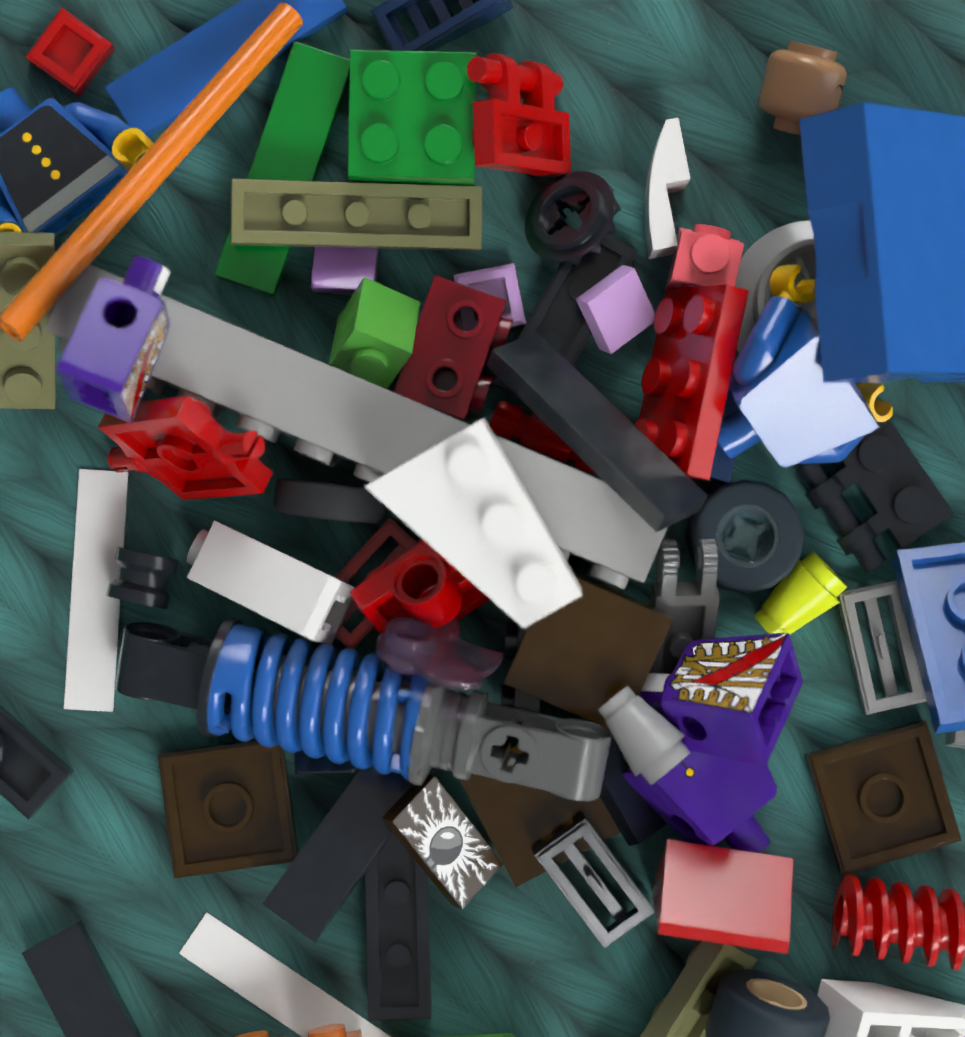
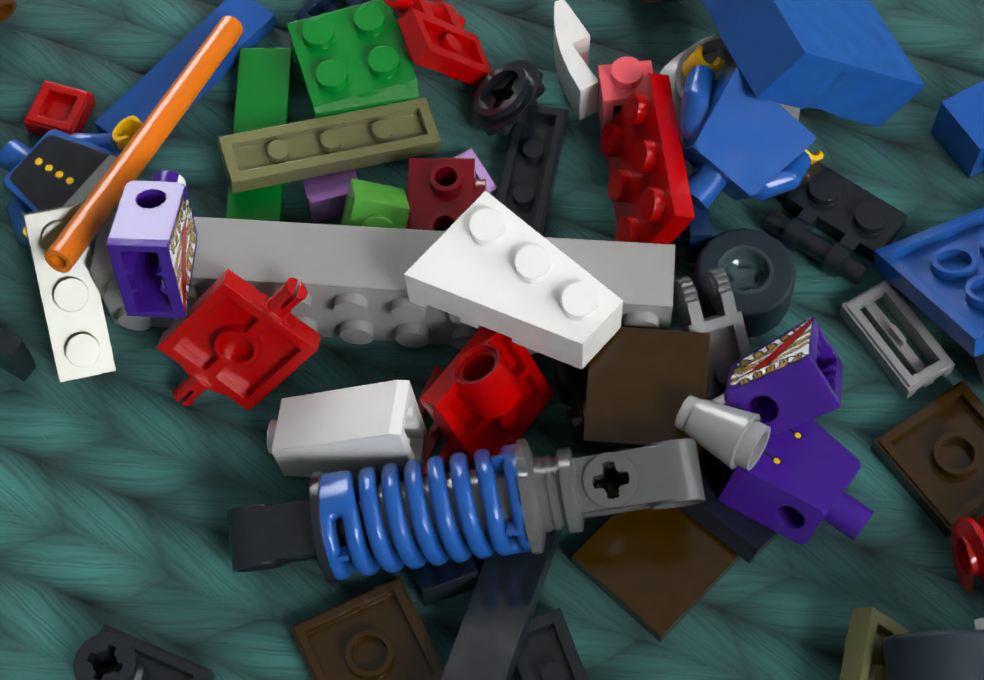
camera: 10 degrees left, 25 degrees down
(92, 613) = (193, 515): white sticker -> none
(142, 578) = (231, 476): black wheel -> none
(327, 501) = (378, 353): black tyre -> none
(435, 653) = (491, 424): clear purple plate -> none
(442, 841) = (578, 608): tile -> none
(565, 841) = (715, 622): tile -> none
(597, 431) = (596, 218): black tile -> none
(616, 309) = (567, 150): lavender tile -> none
(723, 896) = (850, 557): slope -> none
(801, 596) = (818, 298): neon yellow cone -> none

